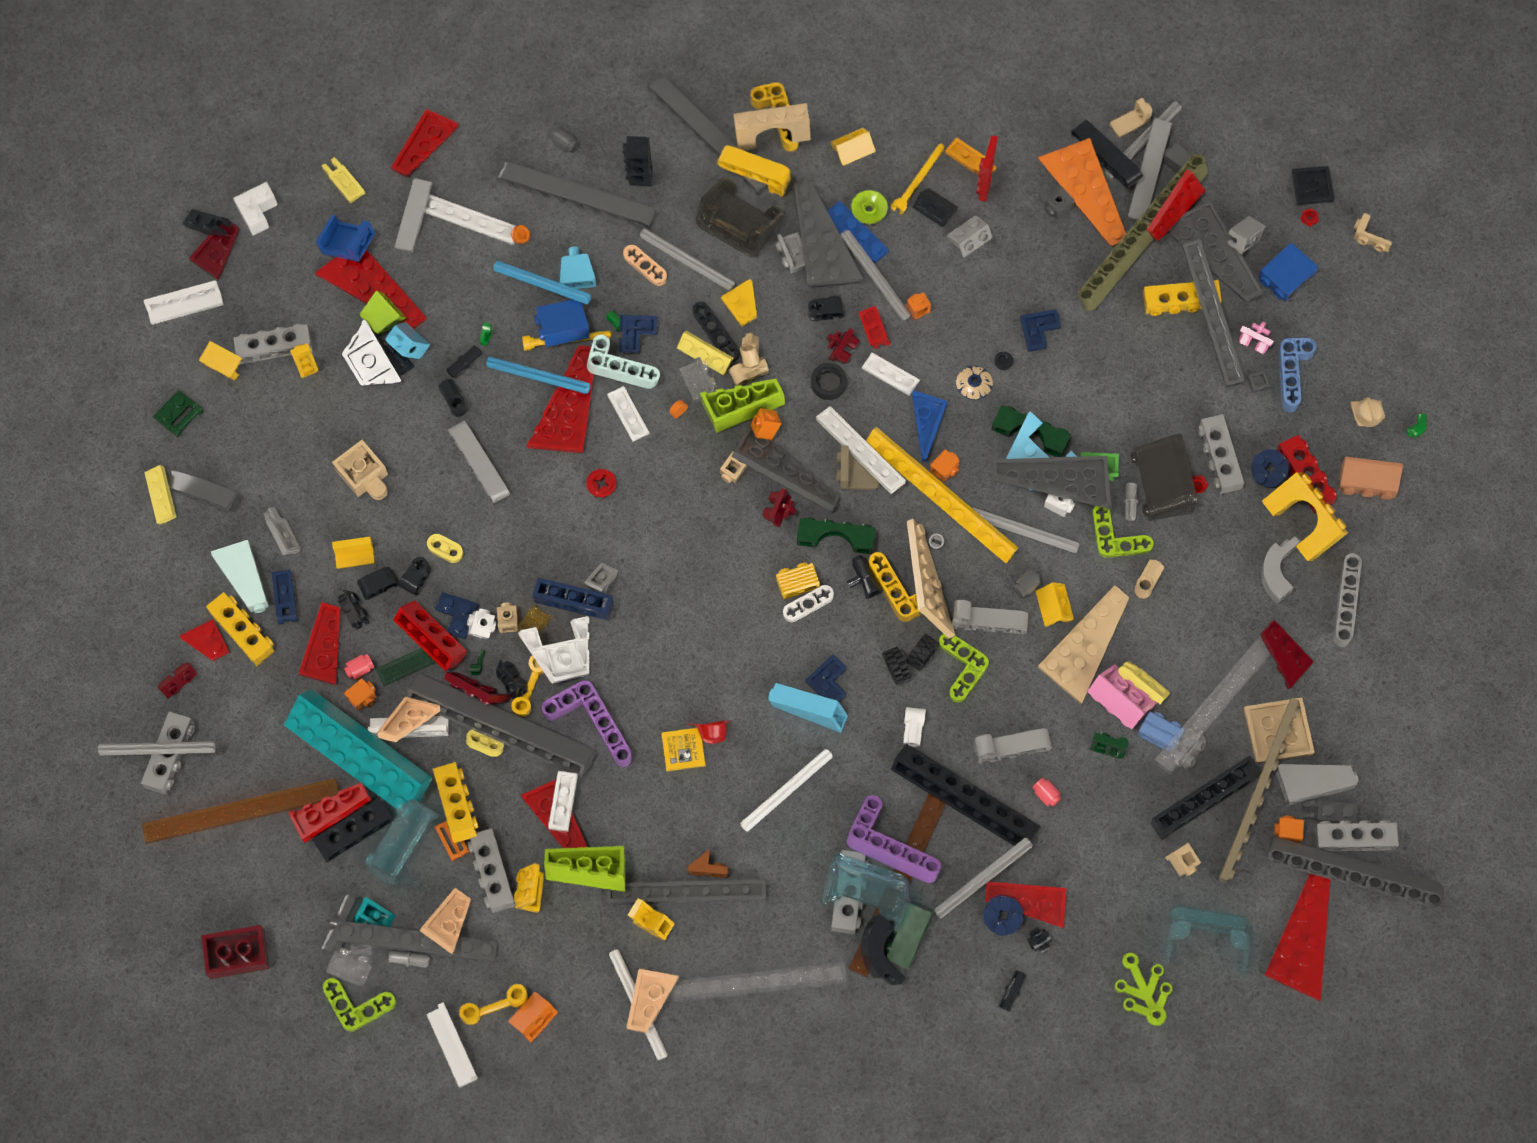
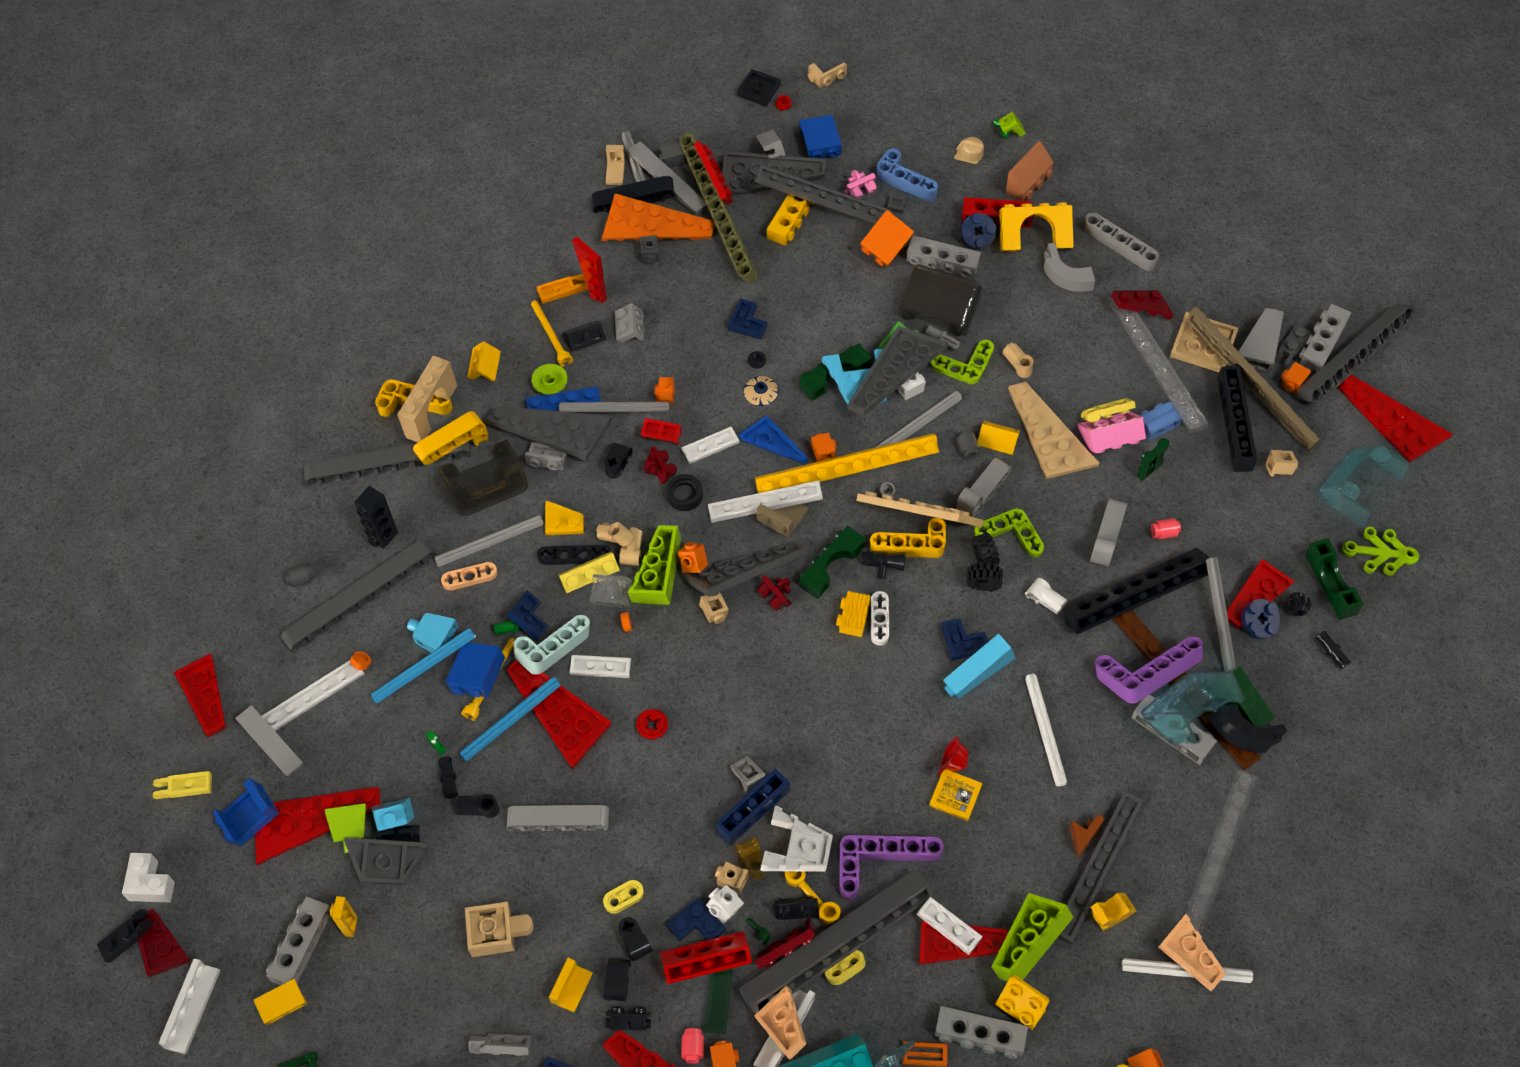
camera: 60 degrees left, 10 degrees down
(459, 828) = (925, 1037): yellow brick -> none
(1084, 958) = (1324, 564): none -> dark green arch
(1204, 394) = (886, 239): none -> orange slope
(1424, 431) = (1011, 122): none -> lime bracket

